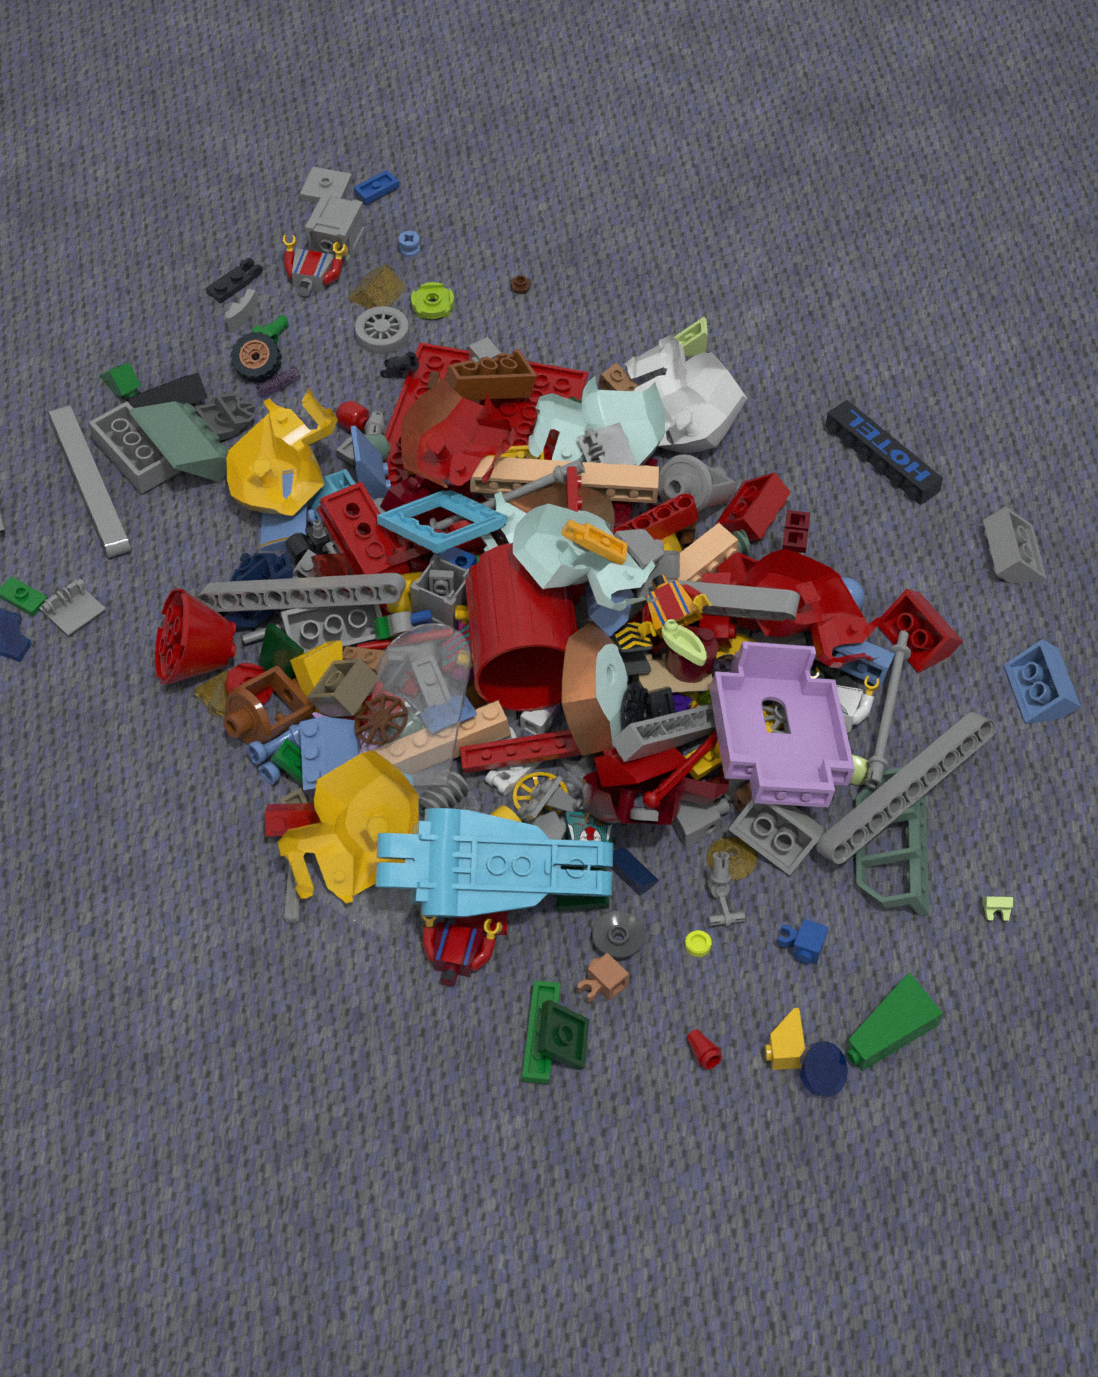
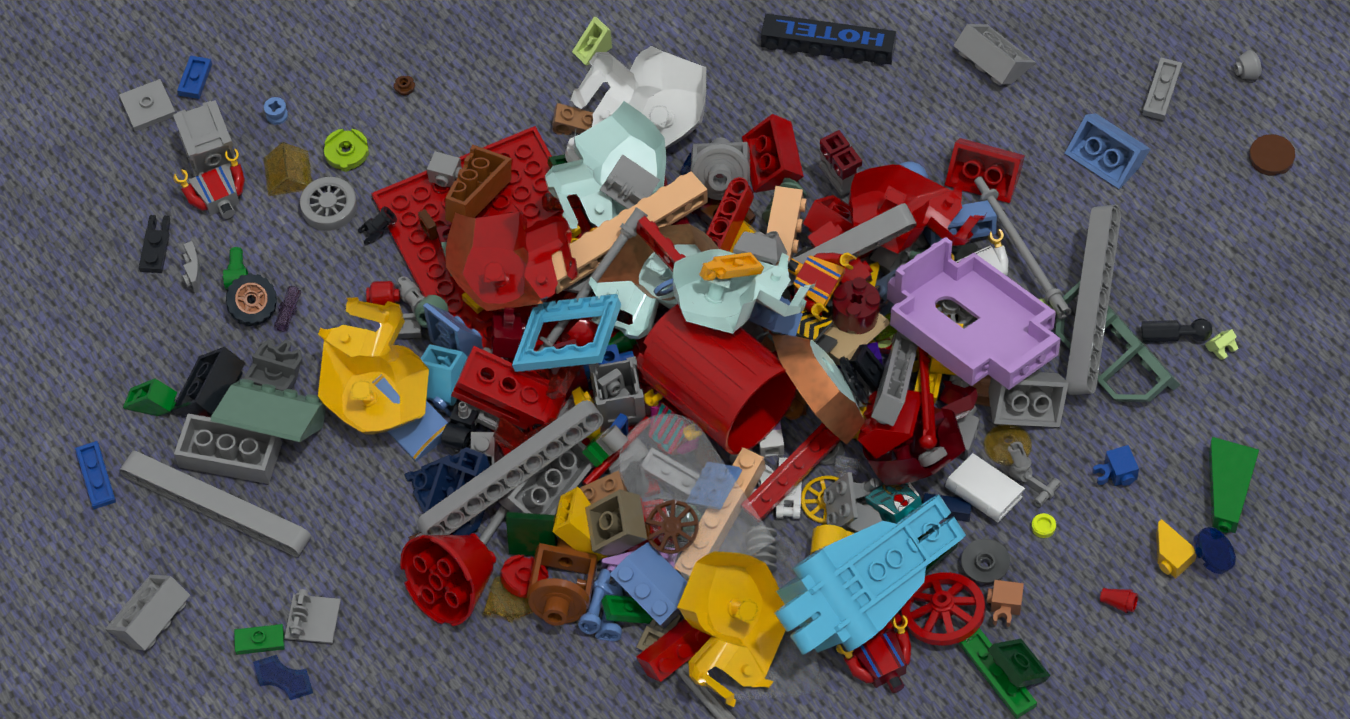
camera: 35 degrees left, 5 degrees up
(33, 407) = (95, 475): none -> blue tile
(546, 943) = (943, 606): none -> red wheel
(675, 876) = (985, 487): none -> white piece
(684, 642) = (854, 301): yellowish green arm -> none
(961, 864) = (1172, 330): none -> black piece

